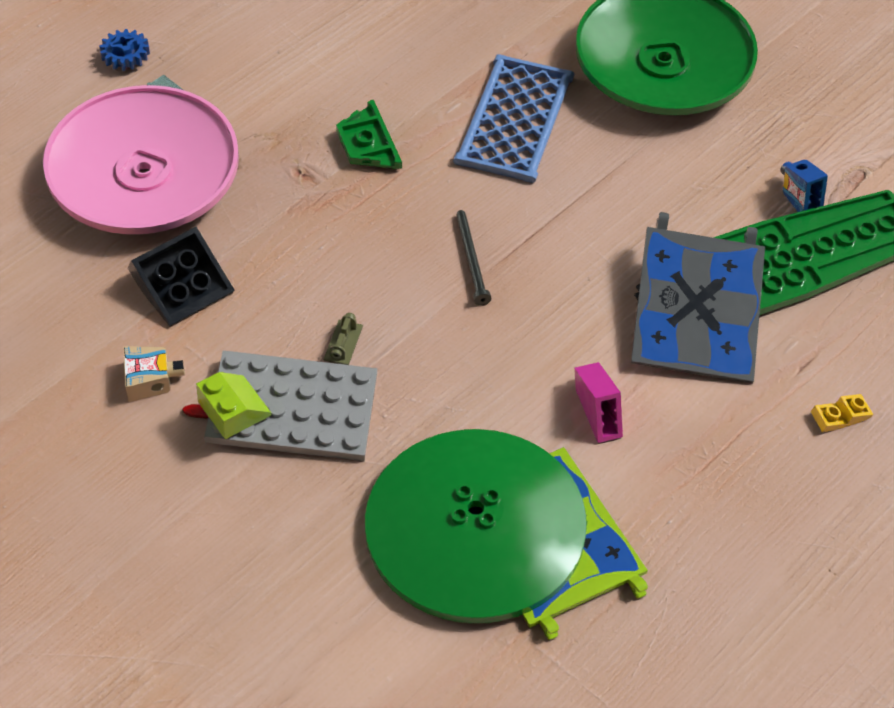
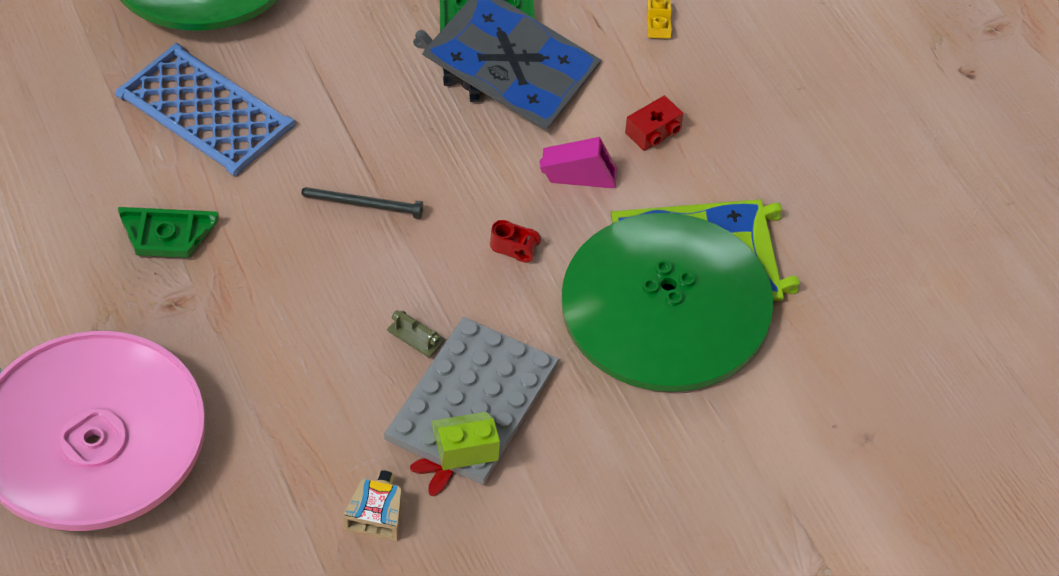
camera: 70 degrees left, 0 degrees up
(180, 276) = (264, 445): black slope -> none
(482, 381) = (513, 240): none -> red piece
(692, 447) = (654, 123): none -> red brick

